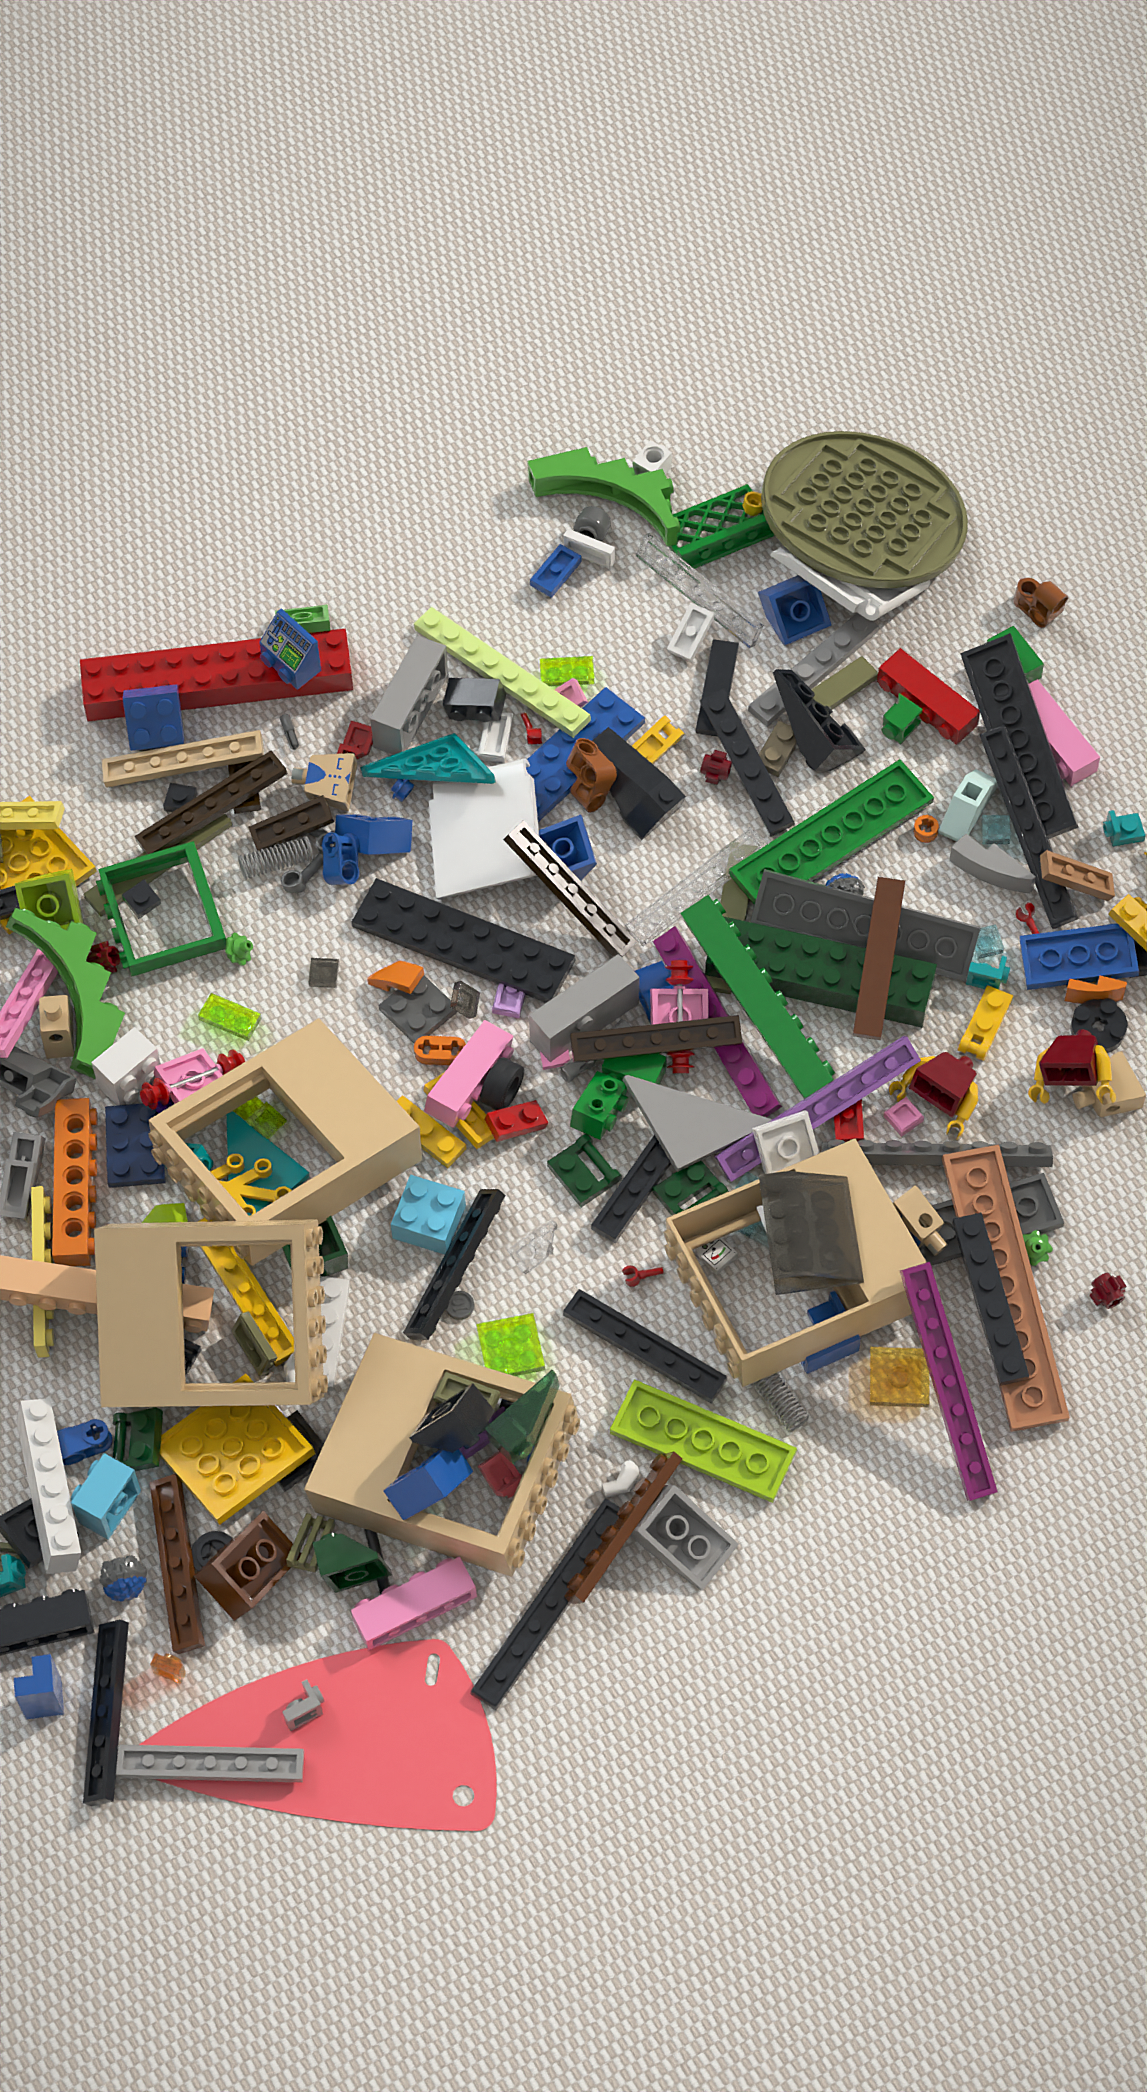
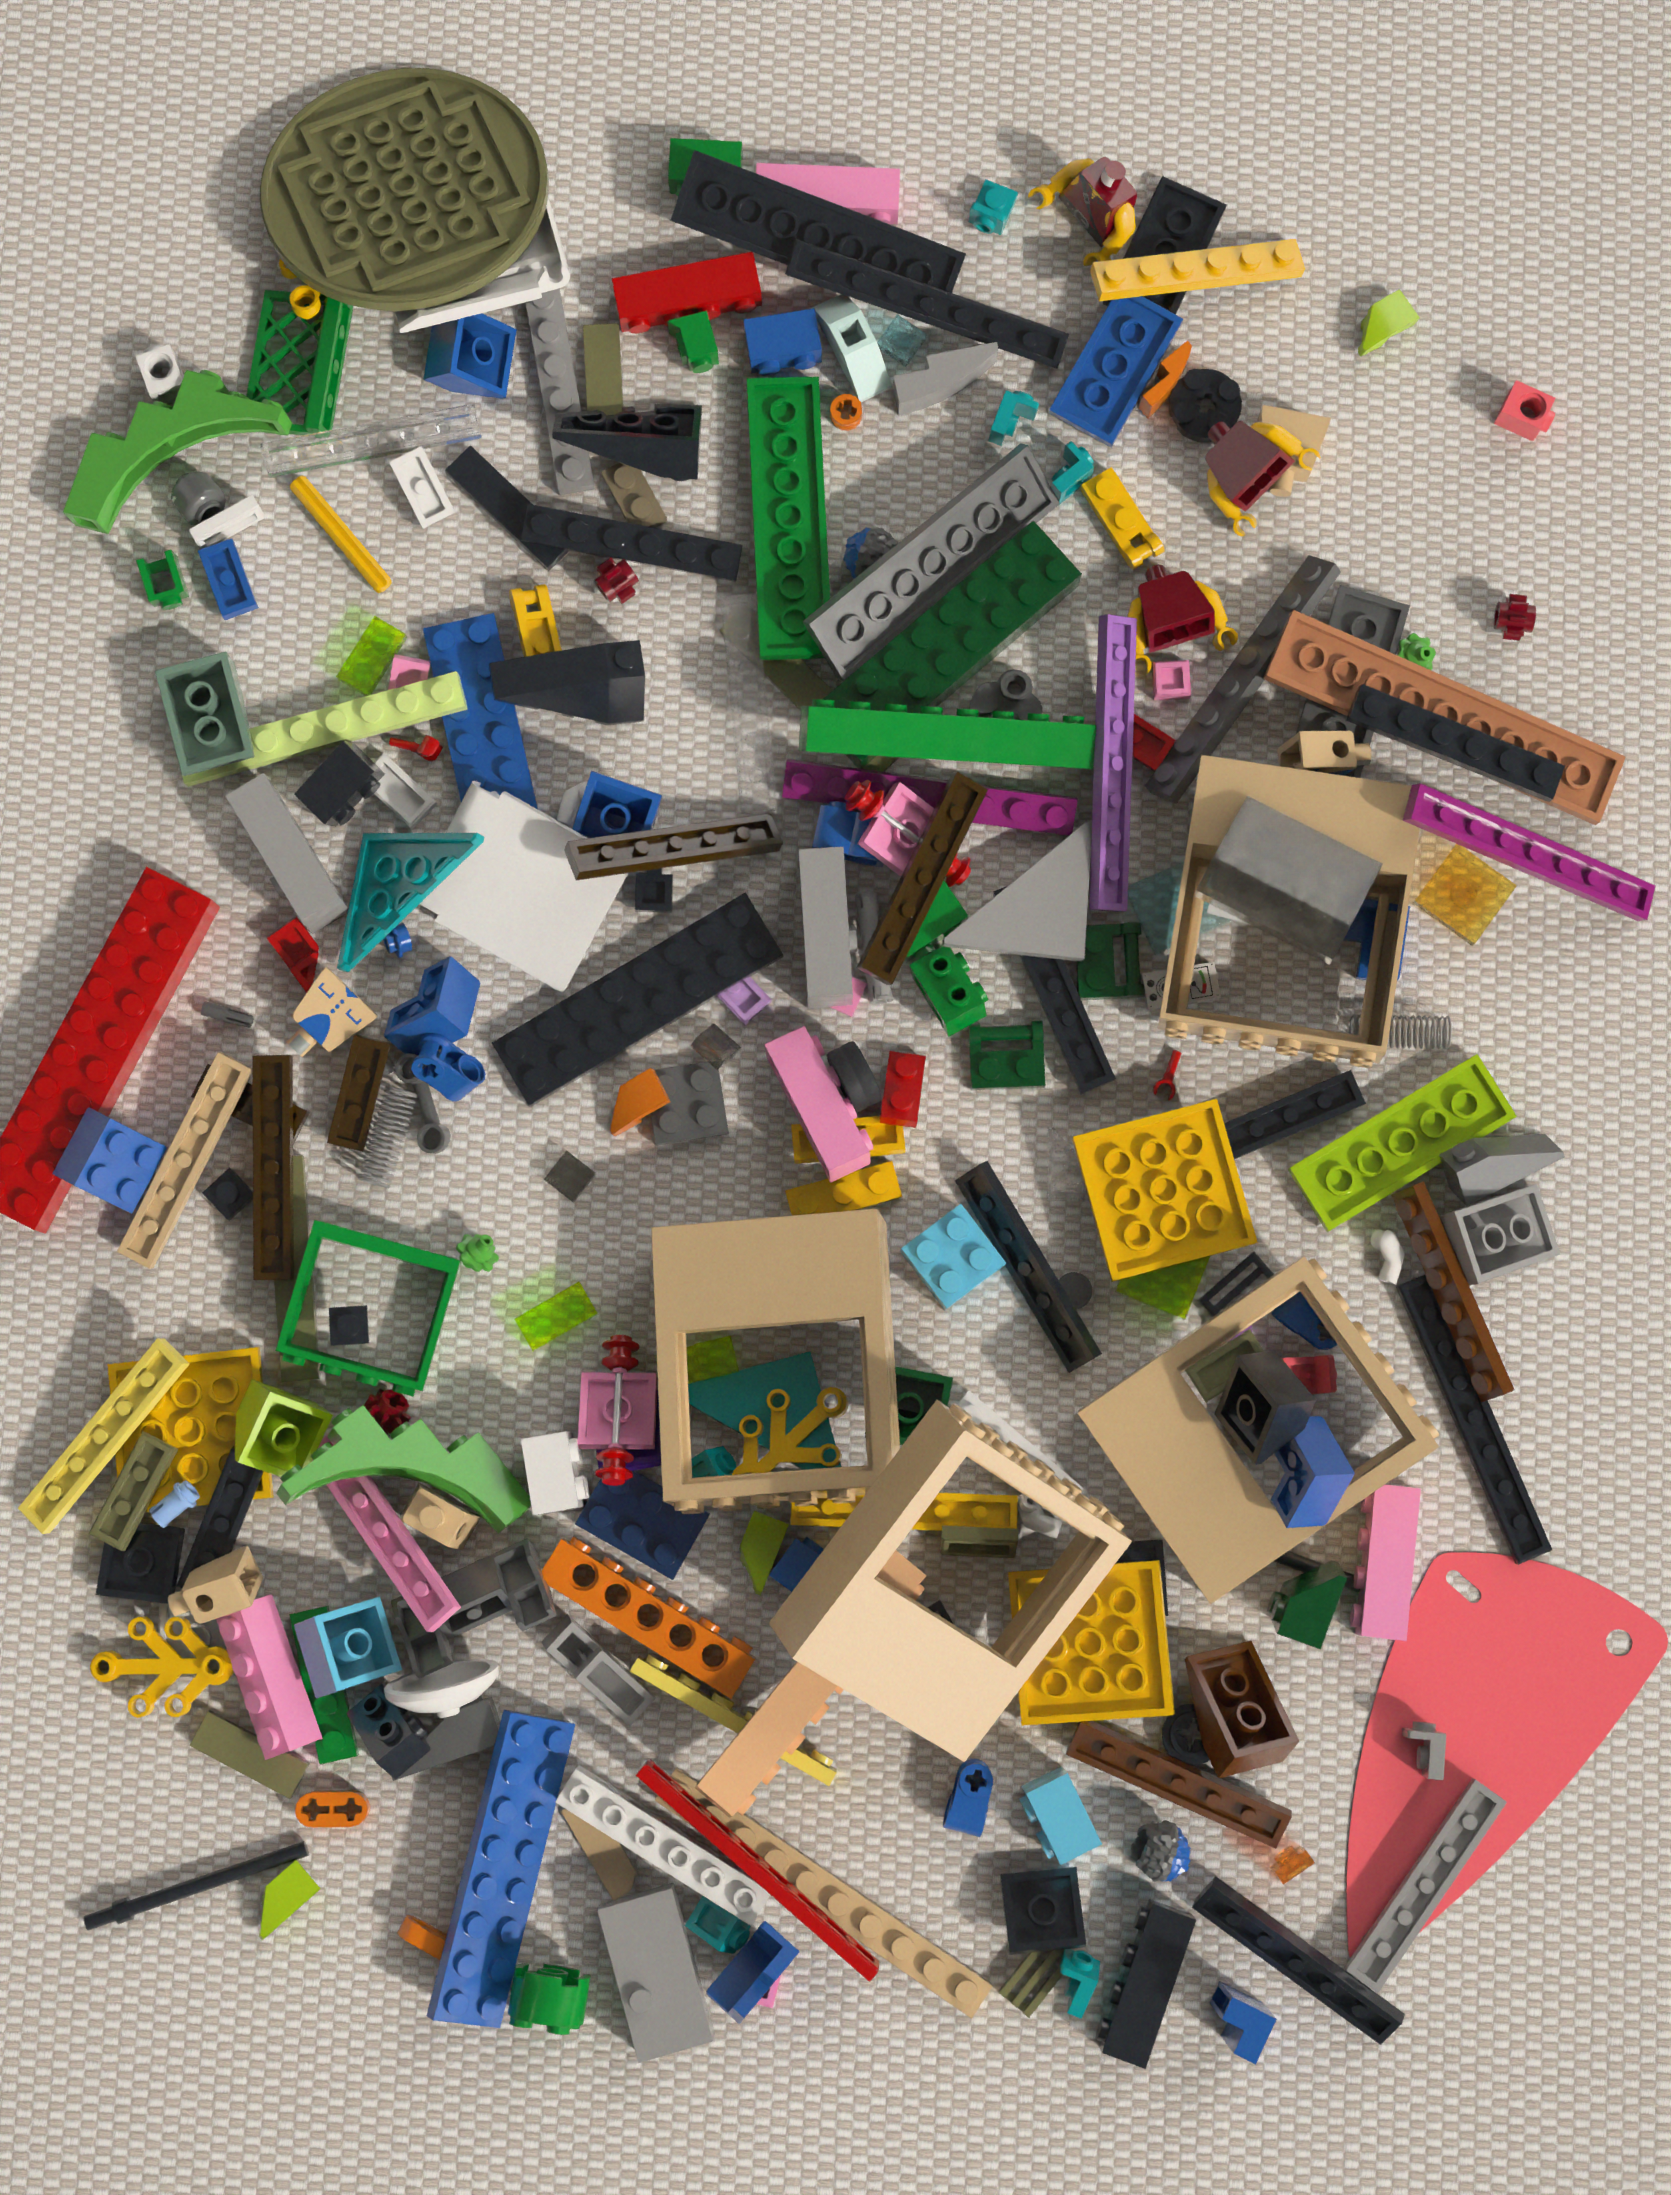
camera: 60 degrees left, 20 degrees up
(48, 1486) = (1008, 1870): white brick -> none
(144, 1438) = (1021, 1735): dark green plate -> none
(290, 650) = (146, 954): blue slope -> none
(308, 1521) = (1227, 1601): olive tile -> none
(311, 618) = (94, 906): bright green plate -> none
(439, 1050) = (749, 1107): orange beam -> none
(464, 602) = (206, 713): none -> sand green slope
(521, 1424) = (1313, 1335): clear green slope -> none
(527, 539) = (163, 581): none -> green window
(539, 906) = (654, 892): none -> black plate
(561, 1307) = (1164, 1190): none -> yellow plate
(593, 772) = (532, 718): dark orange piece -> none
(630, 611) = (340, 534): none -> yellow axle
(728, 1500) = (1492, 1163): none -> dark grey slope
(785, 1141) = (1133, 826): white tile -> none
(813, 1023) = (996, 697): none -> dark grey plate
(879, 958) = (994, 576): reddish brown tile -> none
(939, 765) = (783, 342): none -> blue brick
(988, 942) = (1036, 440): clear light blue plate -> none
(997, 914) = (1011, 408): none -> teal bracket
(1028, 918) = (1030, 385): red hand -> none
(1044, 602) = (661, 87): dark orange piece -> none
(1077, 875) = (1026, 298): medium nougat plate -> none

